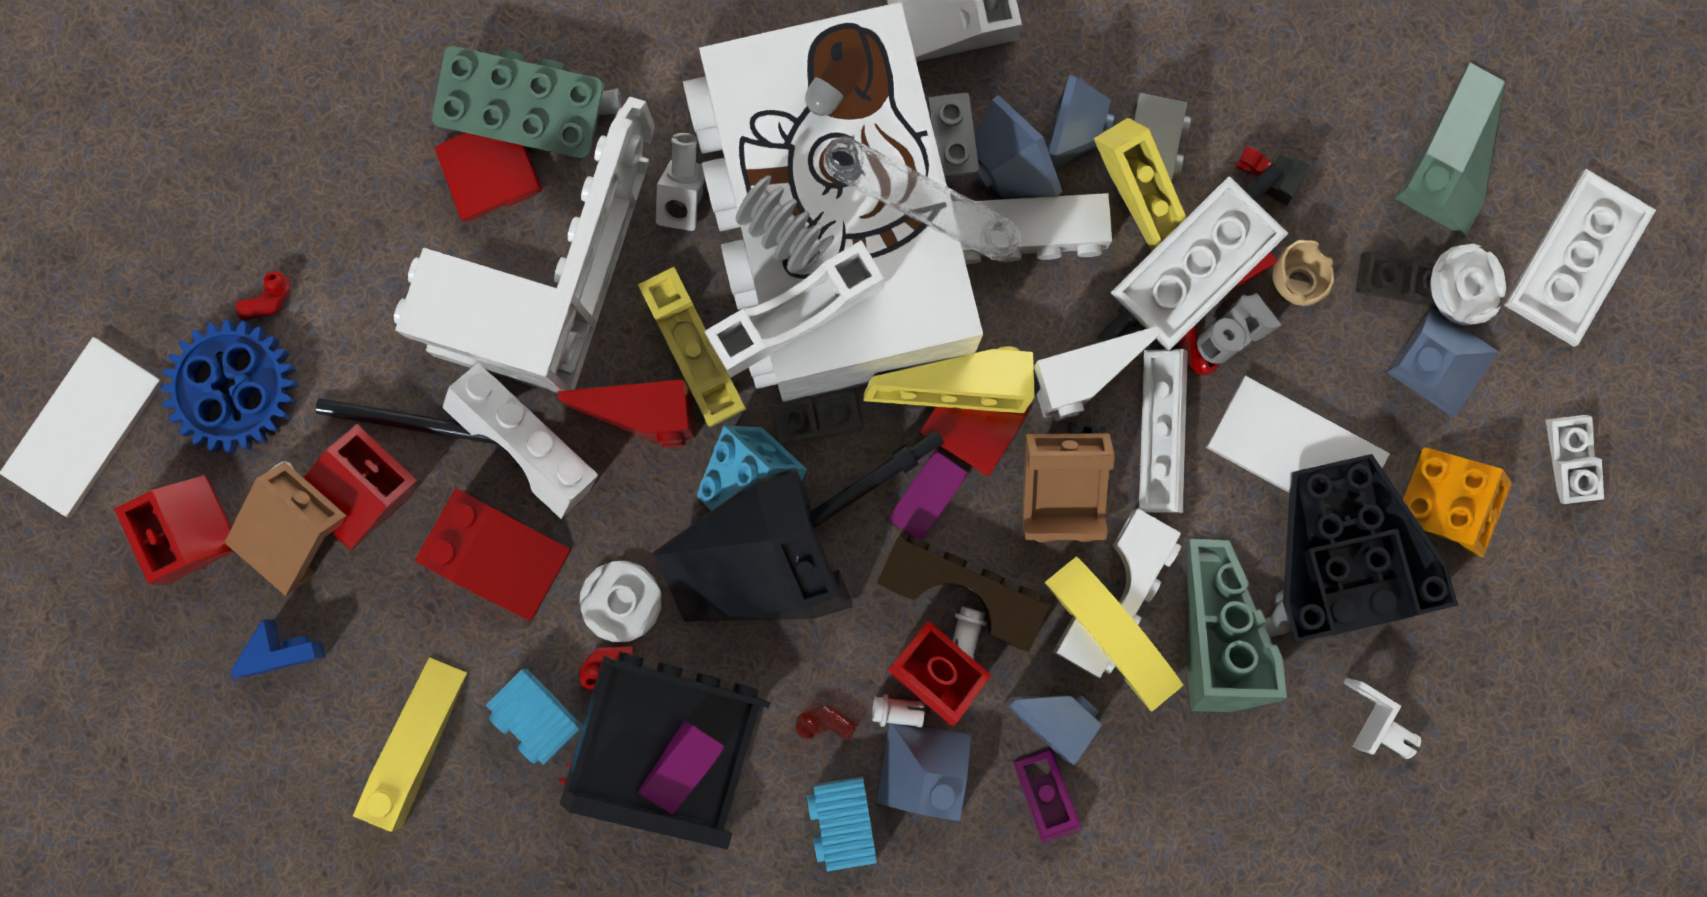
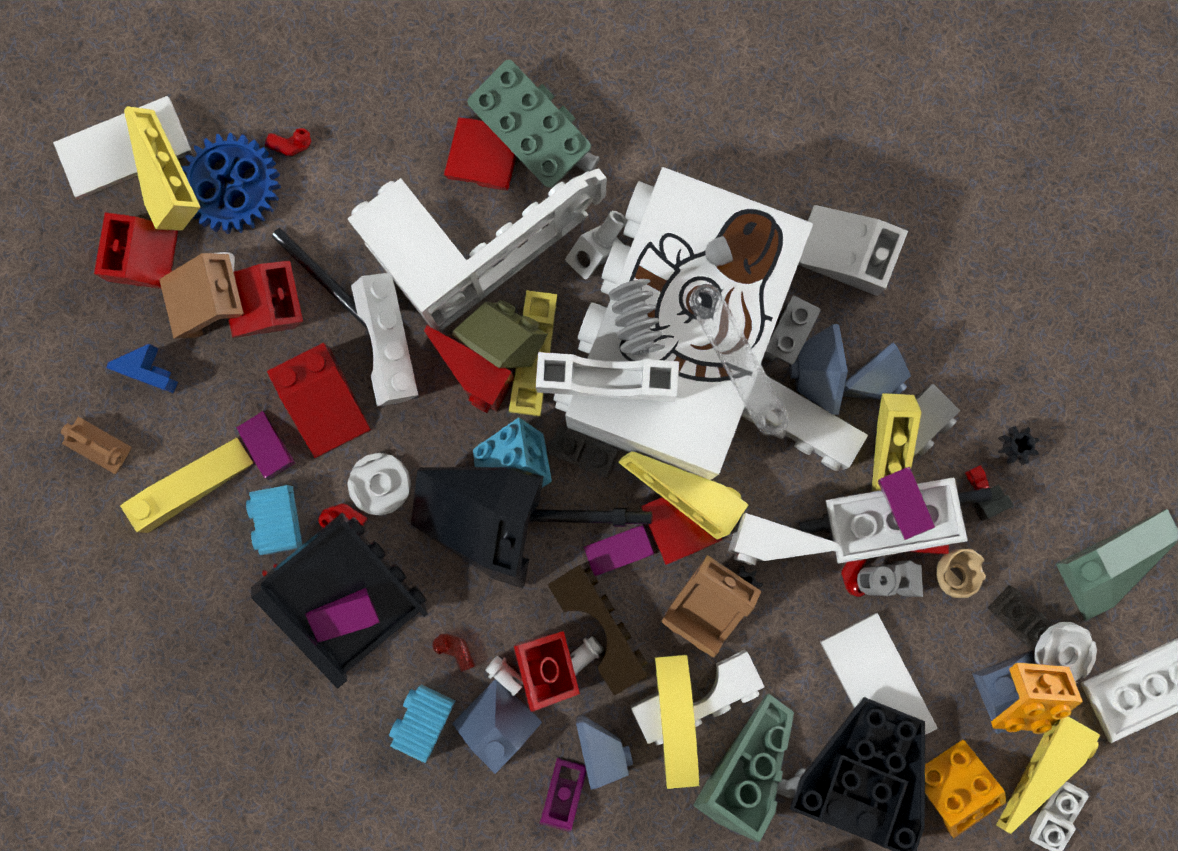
camera: 35 degrees right, 0 degrees up
(150, 429) = (160, 175): none -> light yellow slope
(278, 771) = (95, 444): none -> medium nougat hinge
(467, 644) = (265, 446): none -> magenta slope
(645, 348) = (501, 335): none -> olive slope
(1163, 431) = (799, 612): white tile -> none
(1197, 236) = (906, 503): none -> magenta slope
(1266, 107) = (1011, 448): none -> black gear
(1478, 342) = (1045, 697): none -> light orange bracket
(1533, 399) = (1054, 762): none -> light yellow slope

